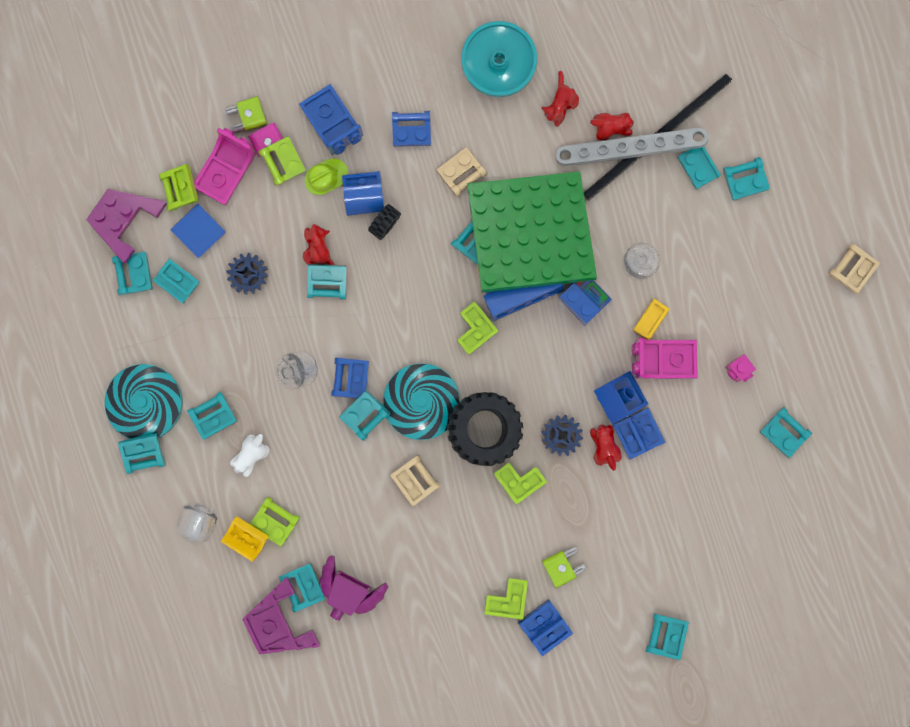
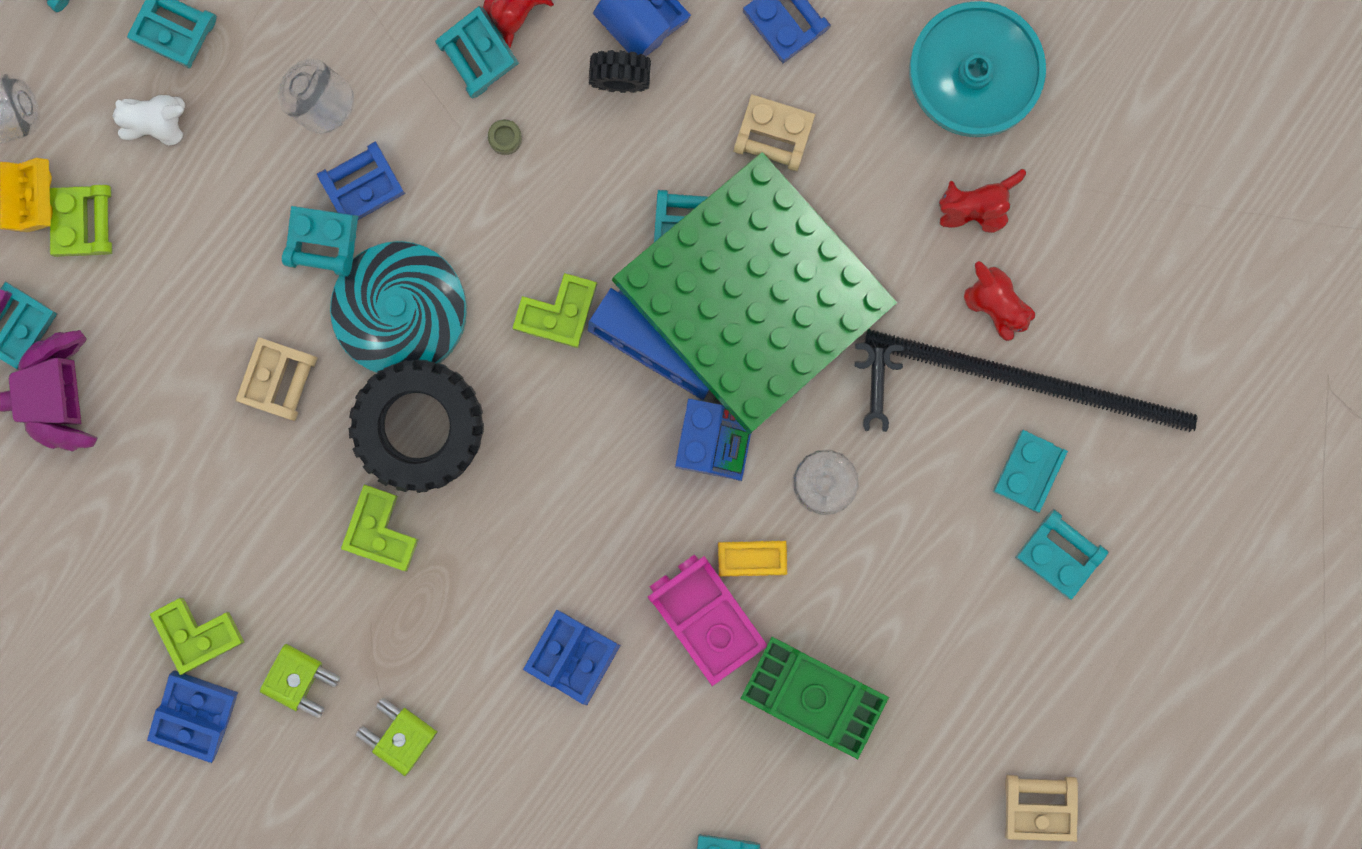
camera: 60 degrees right, 0 degrees up
(375, 296) = (504, 137): none -> olive tile
(572, 428) = (493, 529): dark blue gear -> none
(600, 199) = (877, 358): none -> black bar
(606, 450) = (512, 626): red animal -> none
(621, 397) = (604, 594): blue slope -> none
(624, 537) = (402, 741): none -> lime piece
(632, 147) = (987, 353): light grey plate -> none
(735, 334) = (814, 698): none -> green plate
(740, 369) = (769, 741): dark pink brick -> none

